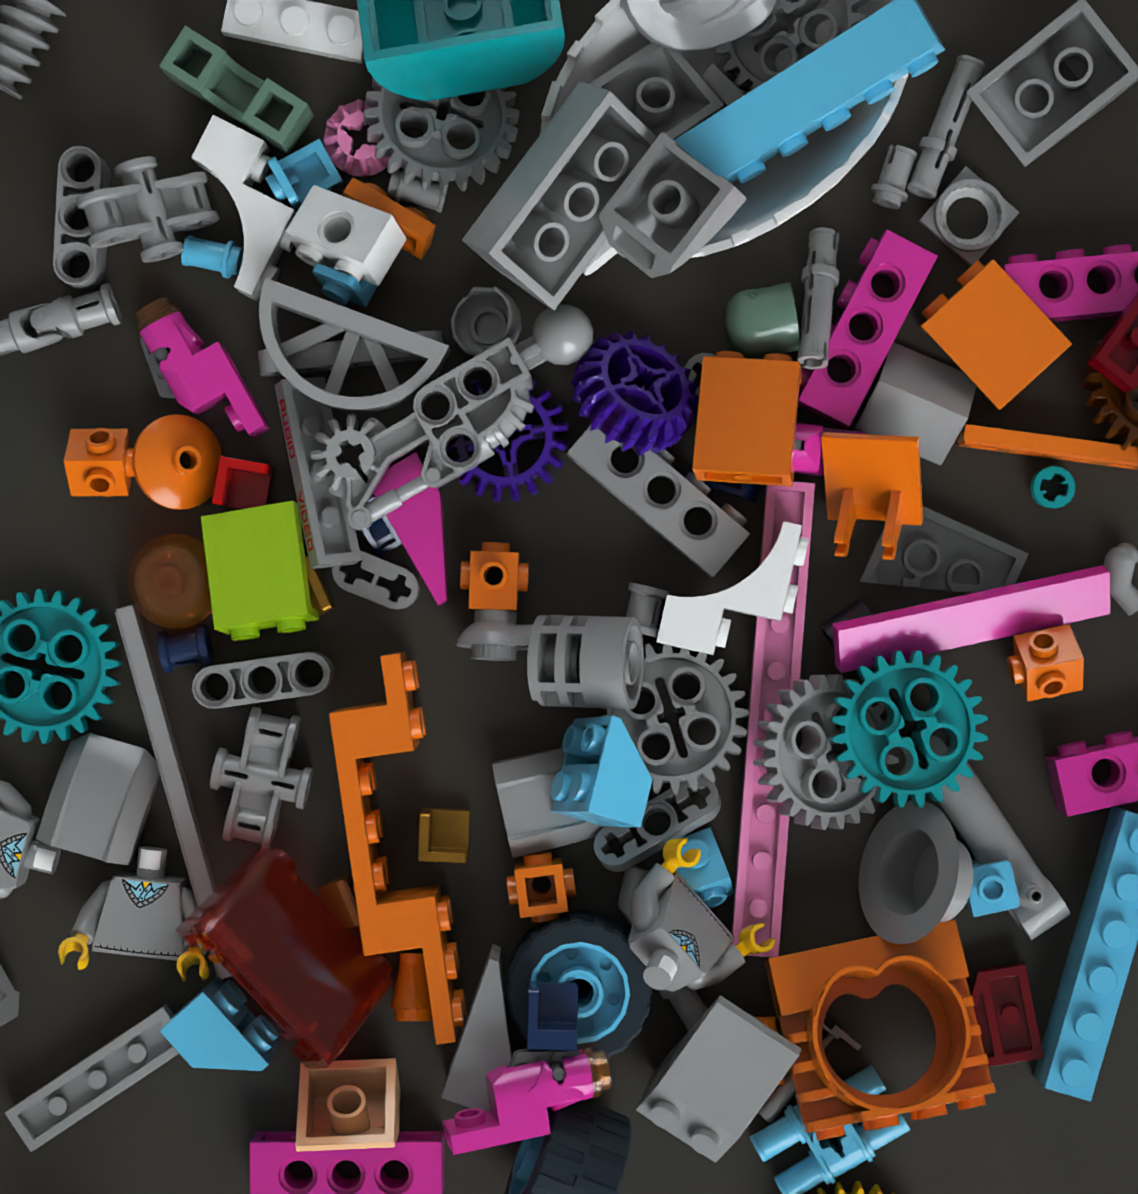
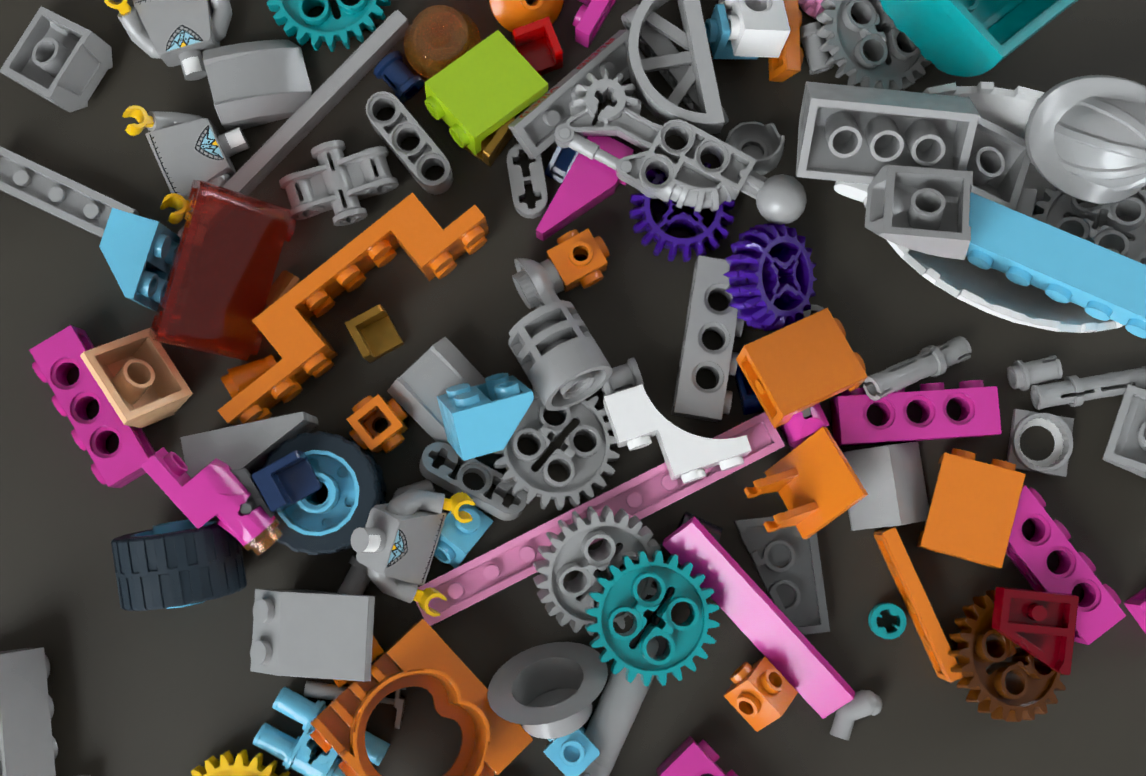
camera: 55 degrees right, 5 degrees down
(763, 321) = (878, 338): sand green helmet -> none

